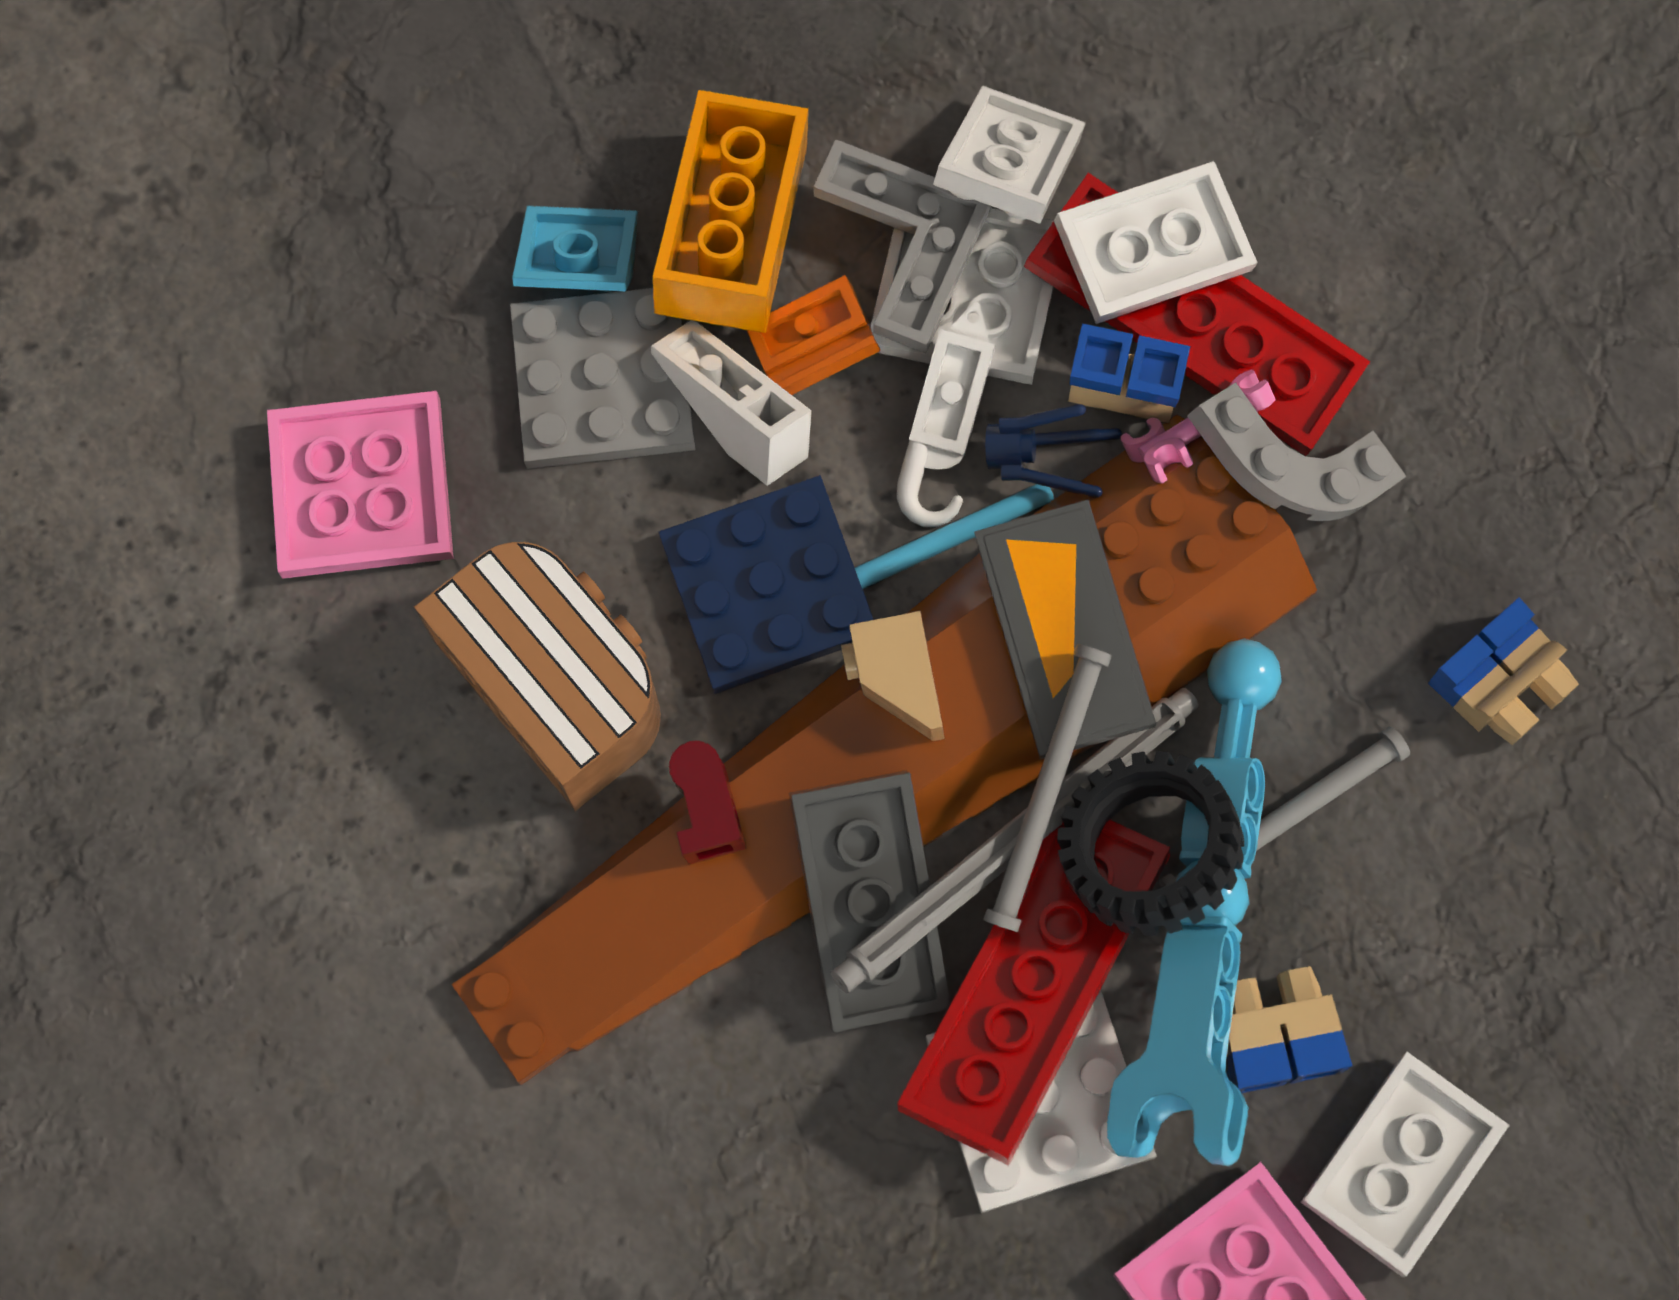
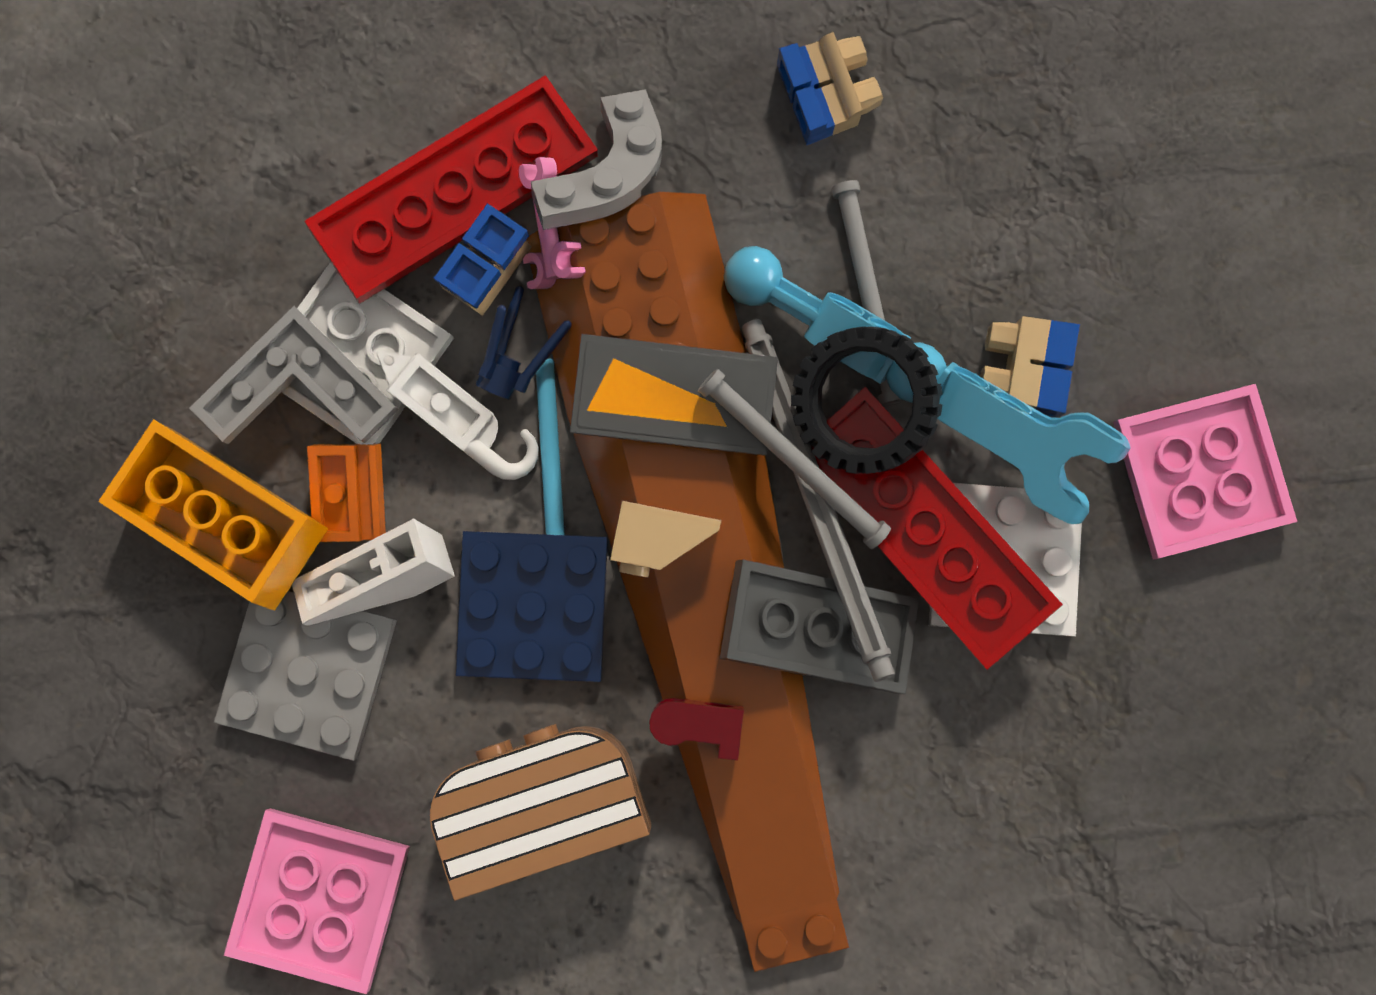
camera: 70 degrees left, 10 degrees up
(576, 249) = (189, 651): medium azure slope -> none
(1009, 154) = (261, 275): white plate -> none
(1155, 242) = (386, 193): white plate -> none
(1404, 1164) = (1155, 318): white plate -> none

